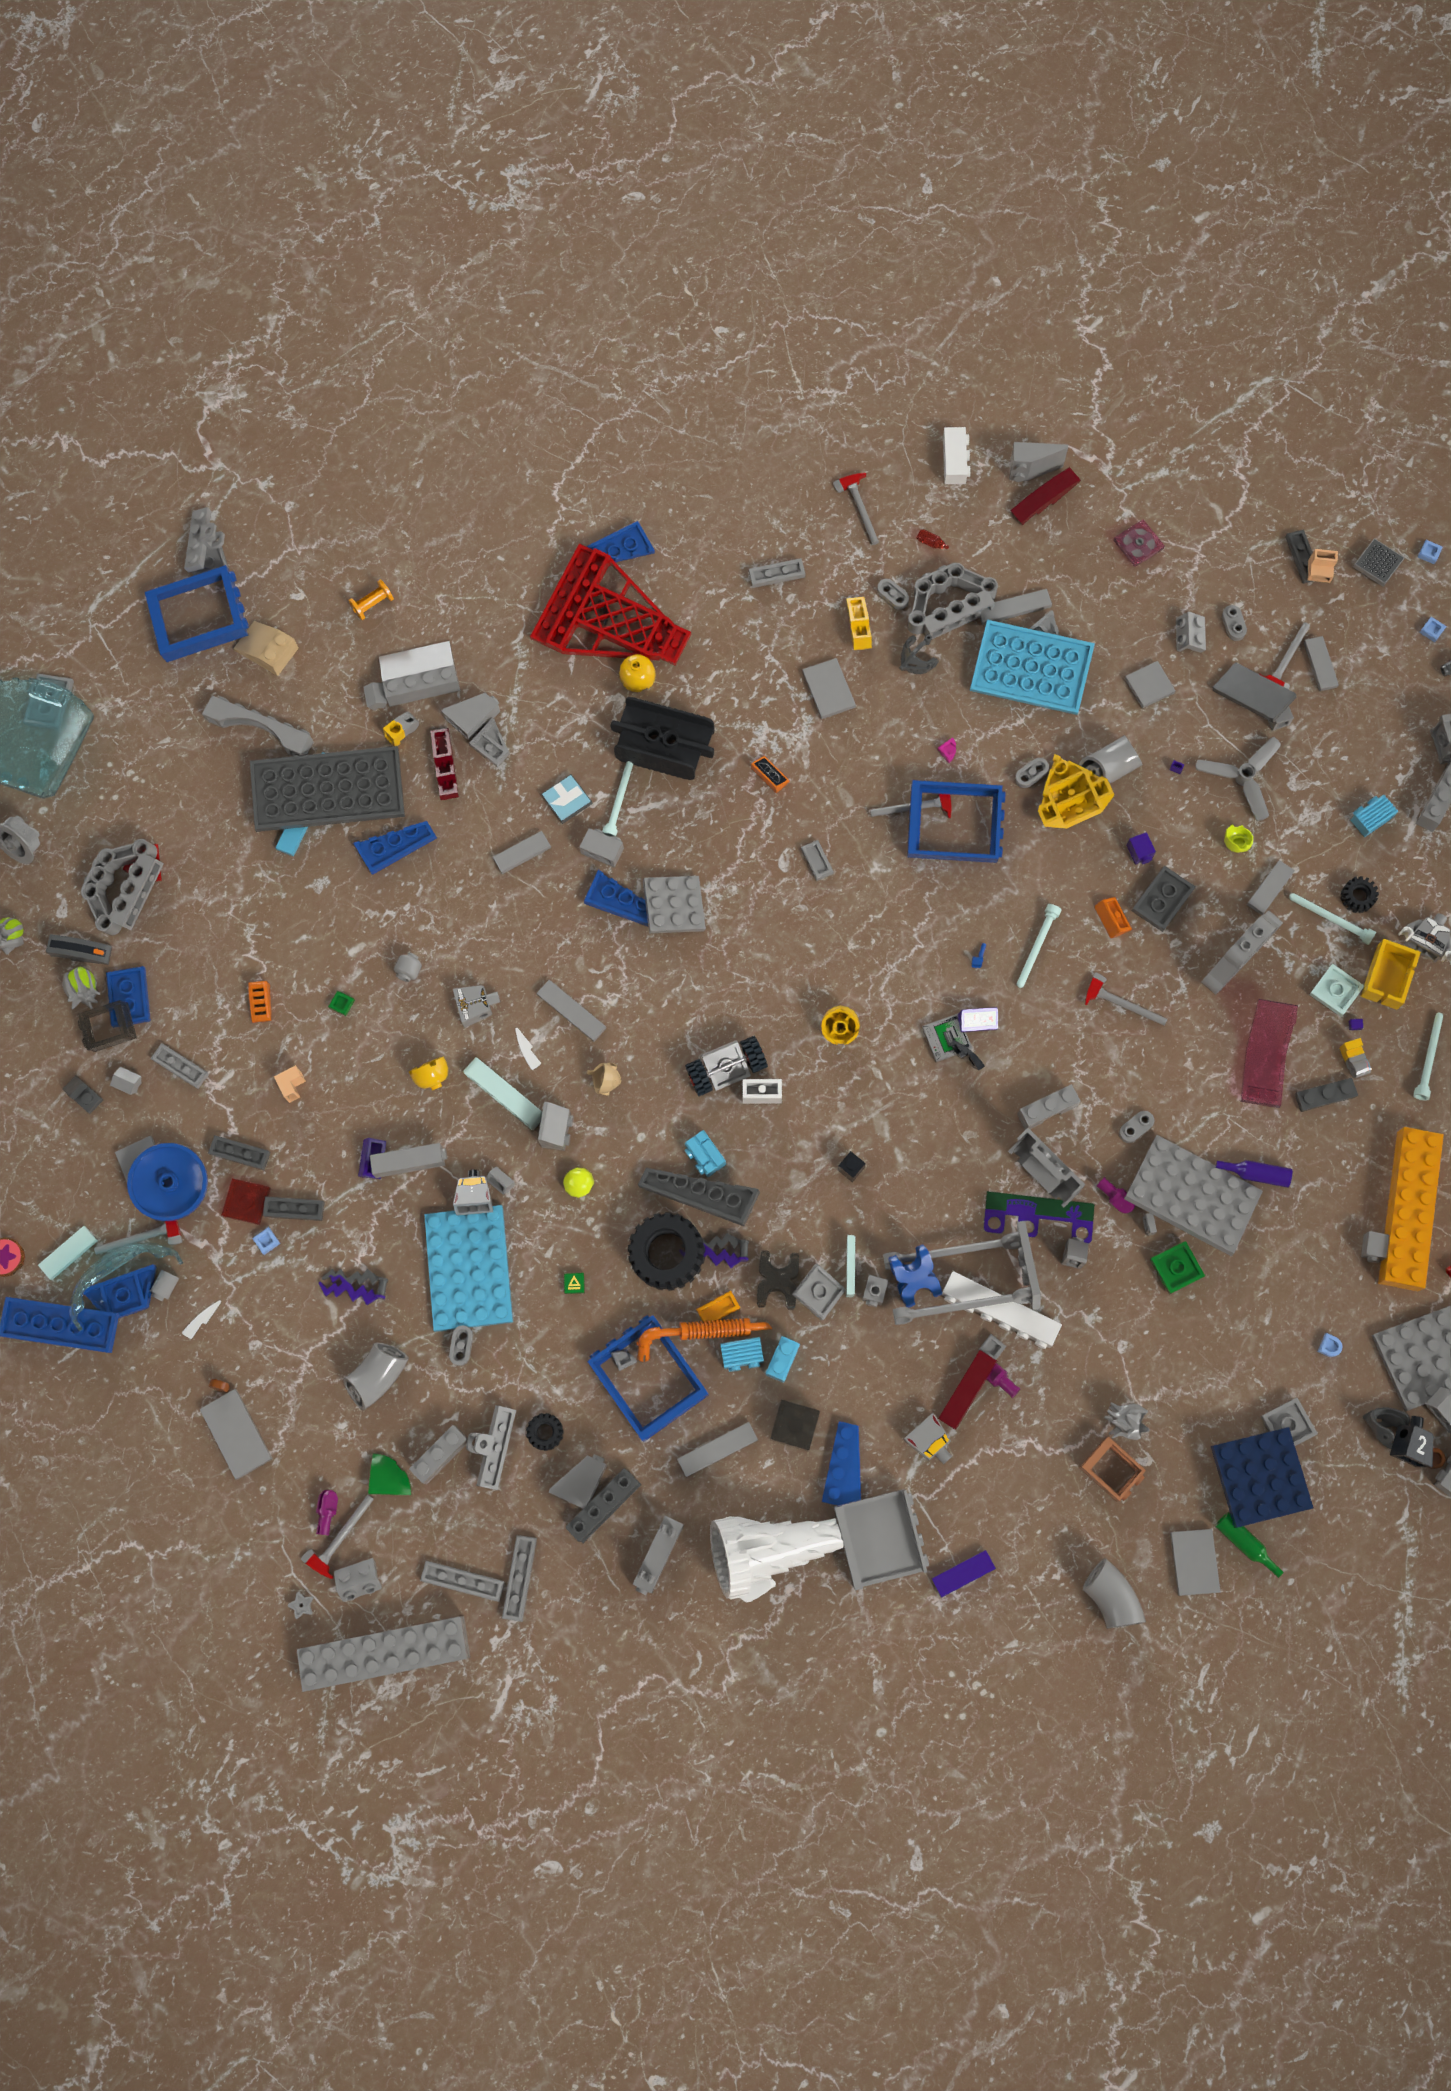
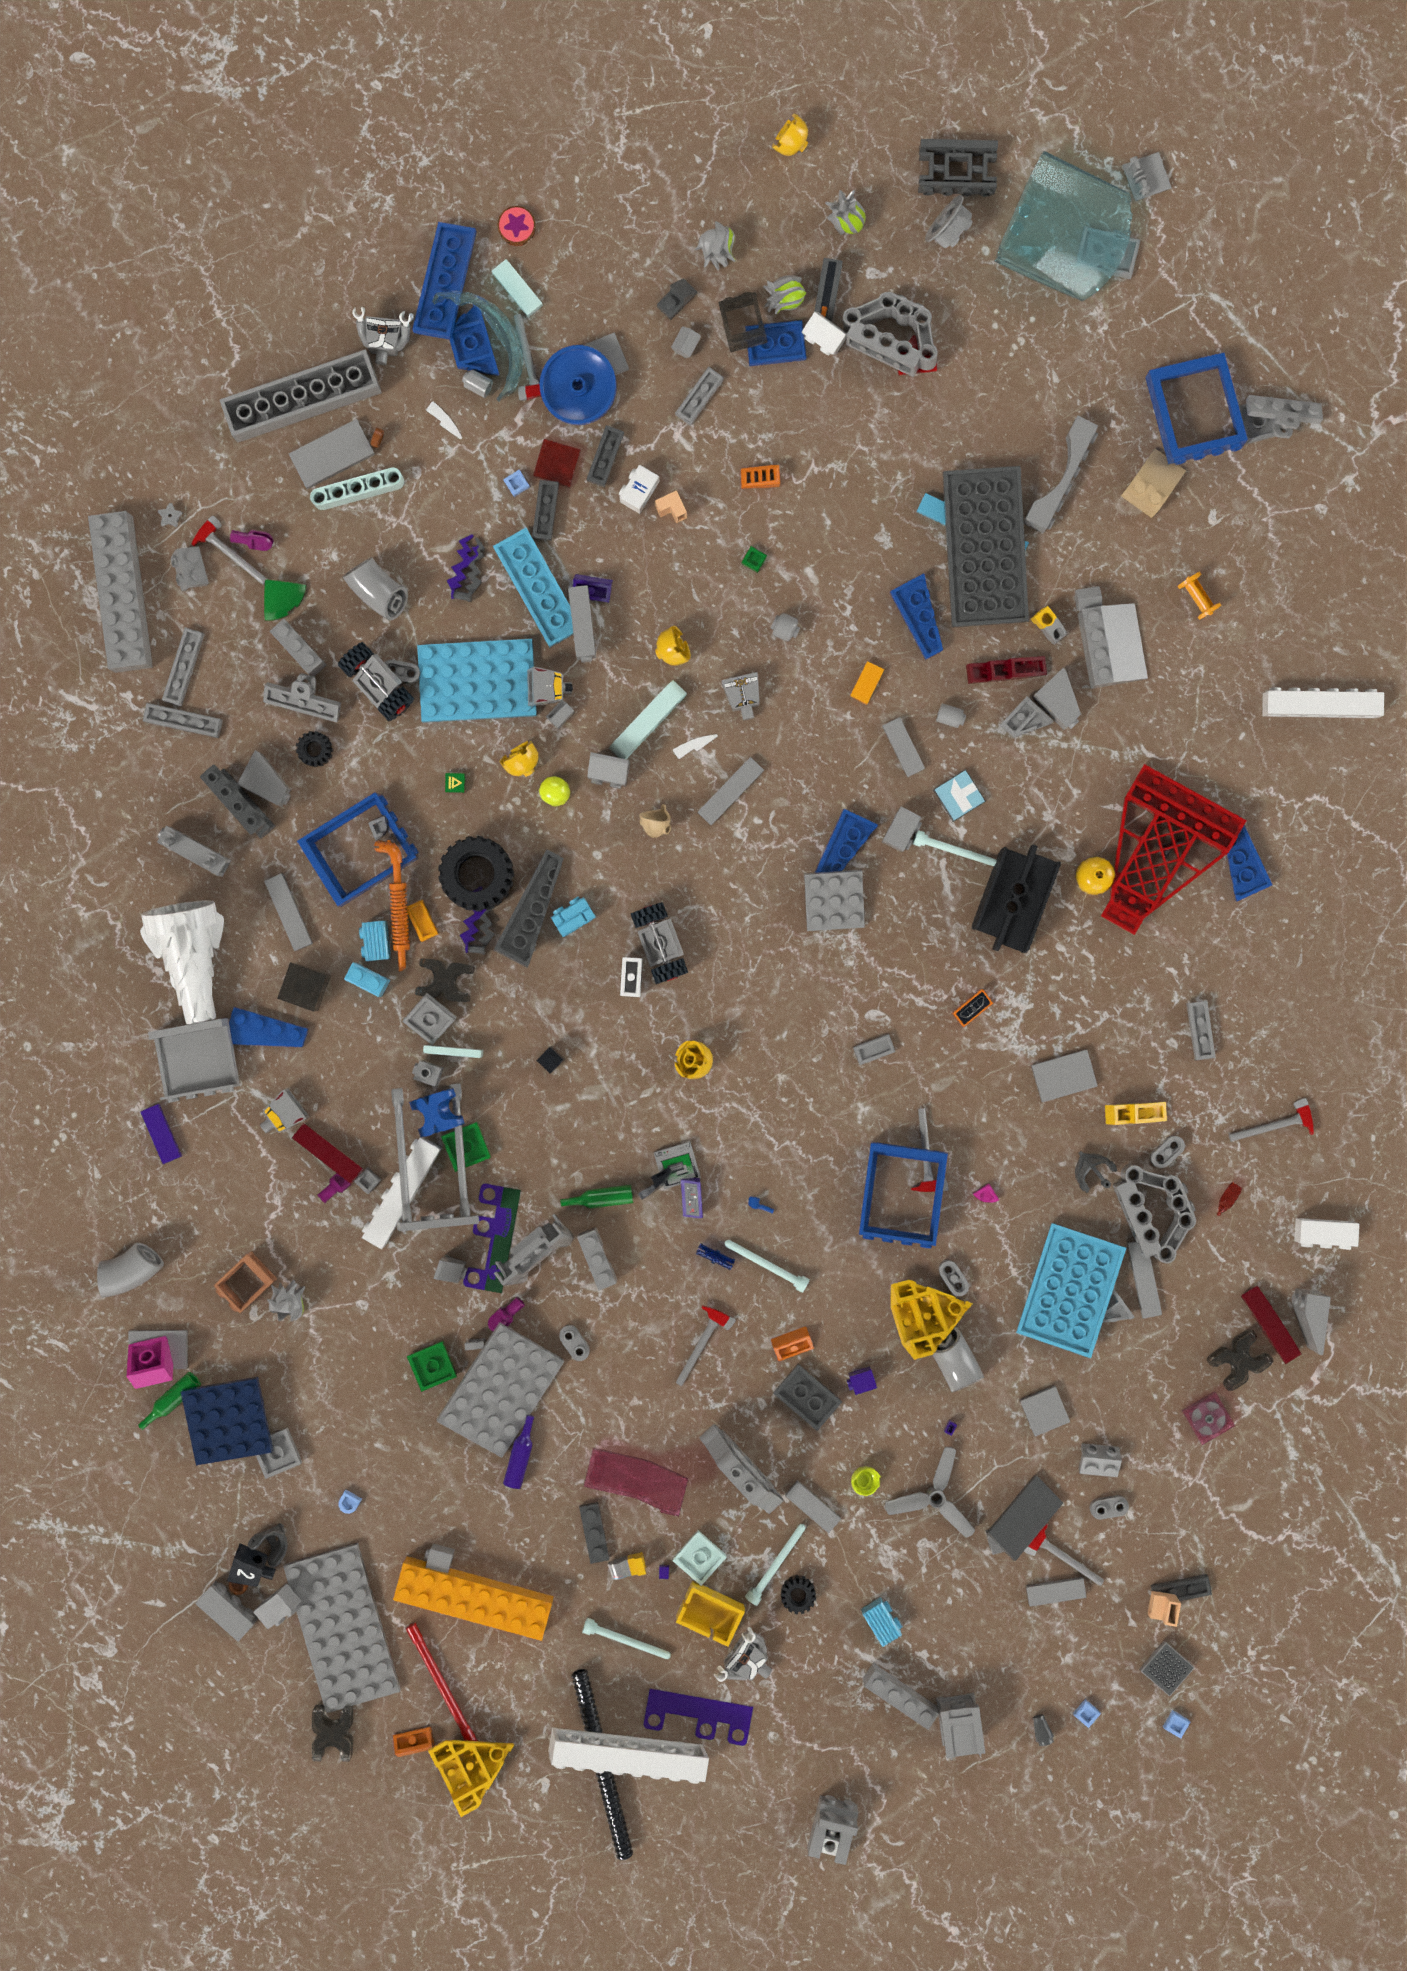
camera: 90 degrees right, 15 degrees up
(31, 1055) = (717, 245): none -> light grey hair
(113, 1385) = (383, 335): none -> light grey torso
(120, 948) = (824, 333): none -> white brick
(175, 1468) = (300, 396): none -> light grey brick
(265, 1396) = (348, 485): none -> light aqua beam
(272, 1116) = (639, 488): none -> white brick
(371, 1212) = (536, 586): none -> medium azure plate
(460, 889) = (867, 683): none -> light orange tile
(469, 491) = (1323, 703): none -> white brick
(472, 1368) = (376, 681): none -> plate
(490, 810) = (950, 716): none -> light grey brick
(548, 1215) = (521, 760): none -> yellow cylinder
(943, 1238) = (474, 1146): none -> green plate
(986, 1106) = (602, 1197): none -> green piece
(1034, 994) = (715, 1256): none -> clear blue pin
(1081, 519) = (1240, 1360): none -> clear smoke piece
(1209, 1566) = (149, 1362): none -> dark pink slope

